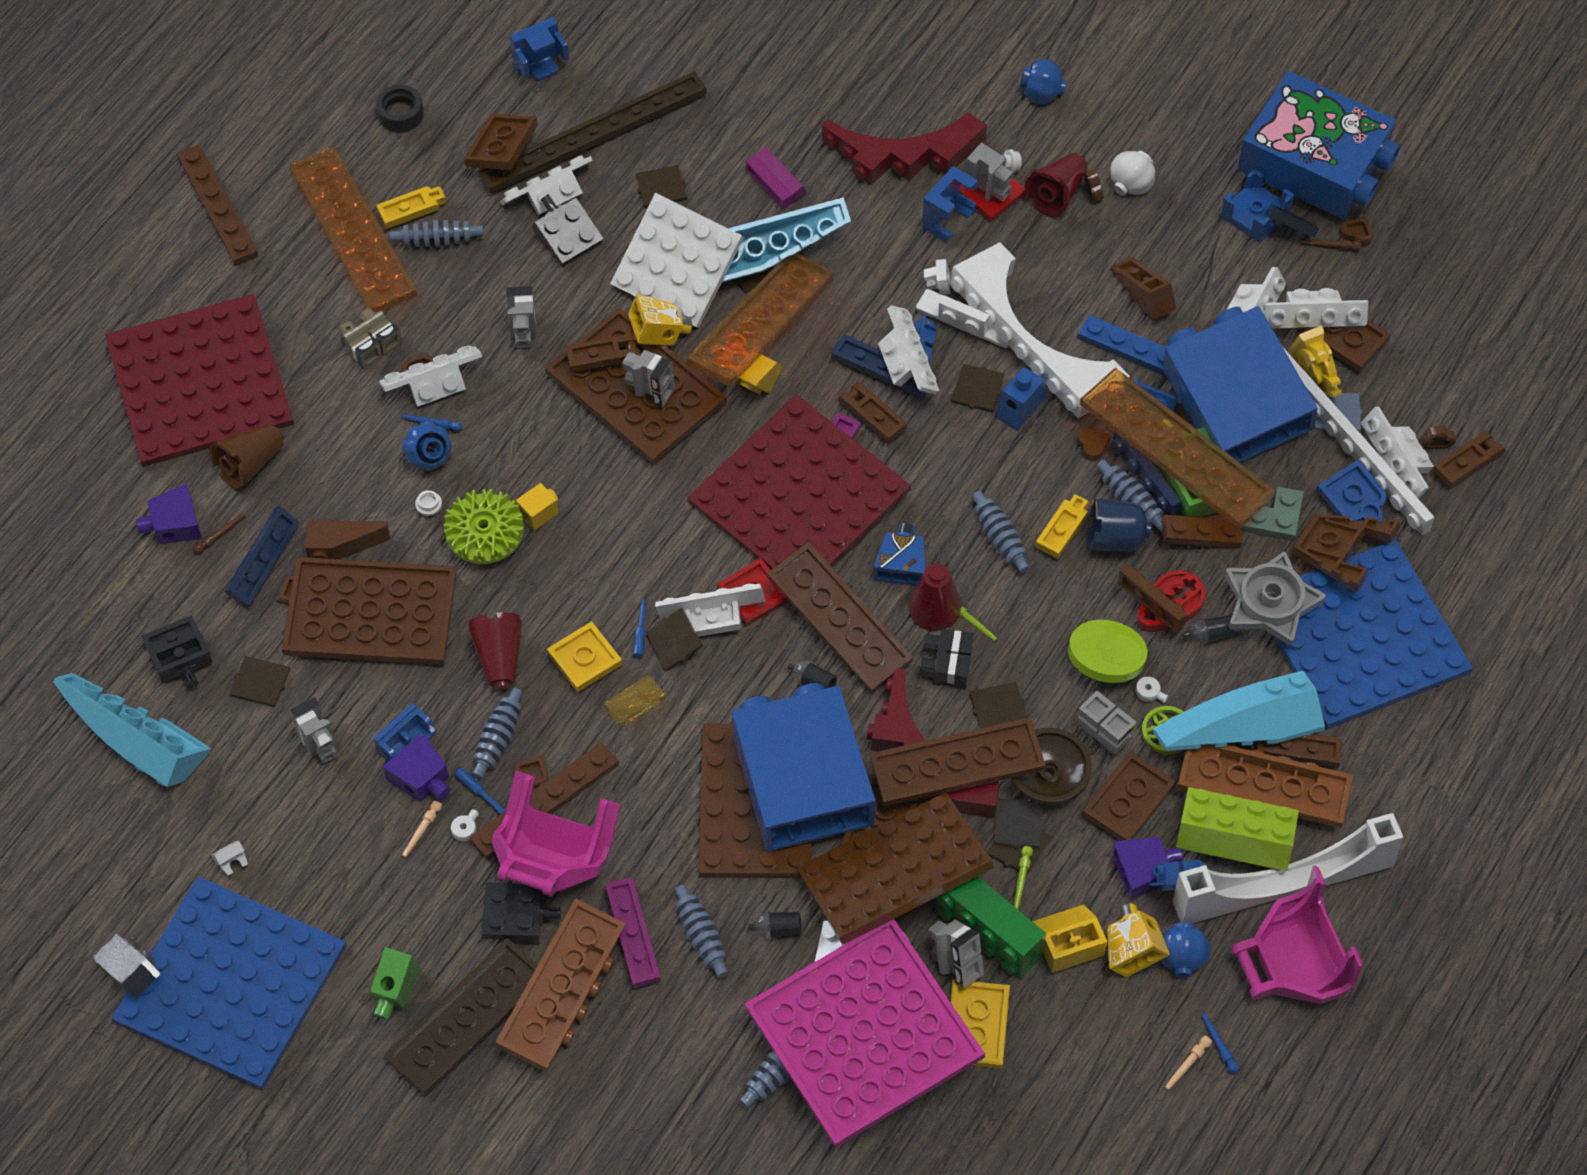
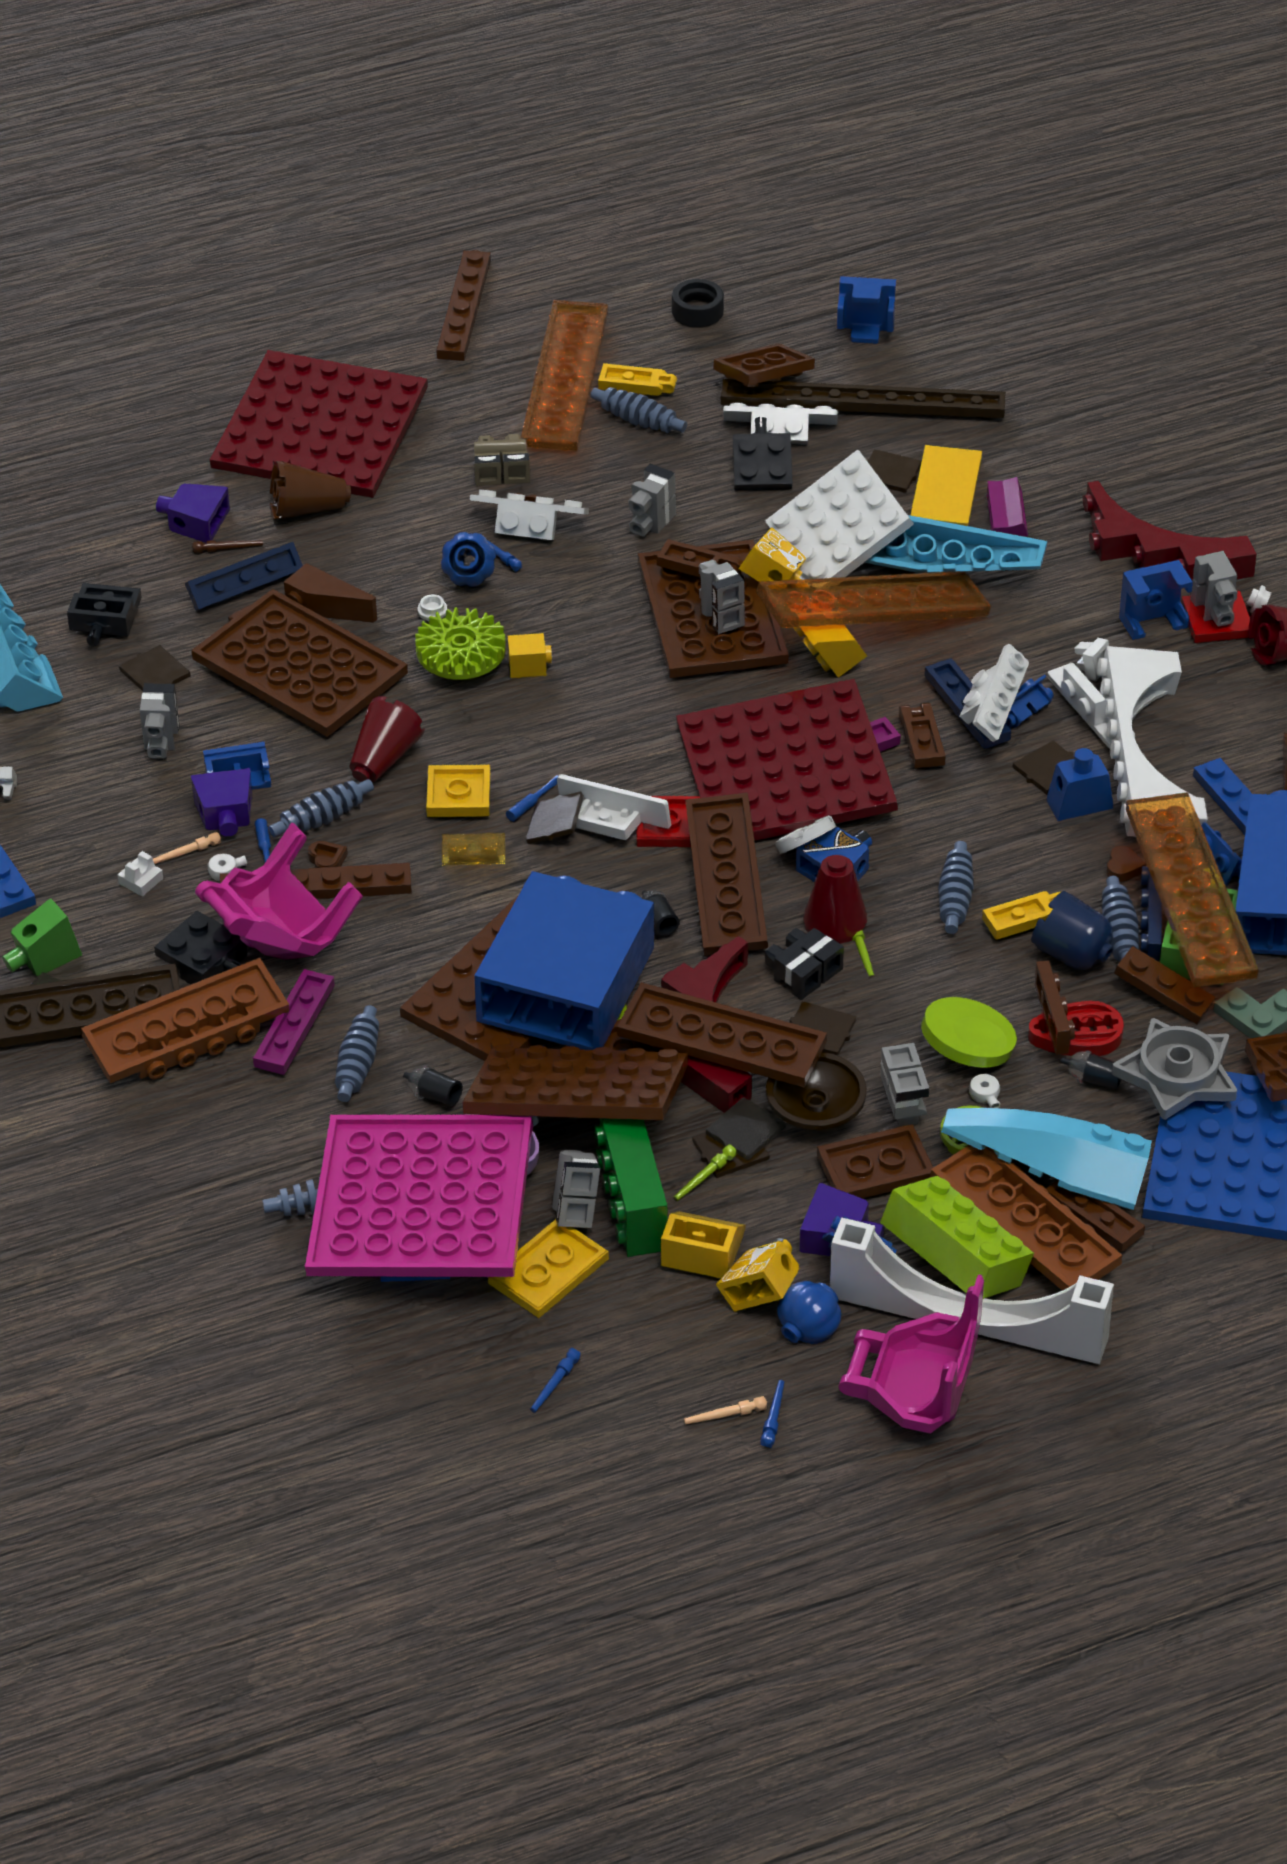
camera: 35 degrees right, 15 degrees down
(408, 873) = (140, 874): none -> white tile
(715, 180) = (947, 484): none -> yellow tile
(870, 551) = (805, 834): none -> white tile
(1054, 1100) = (563, 1369): none -> blue piece

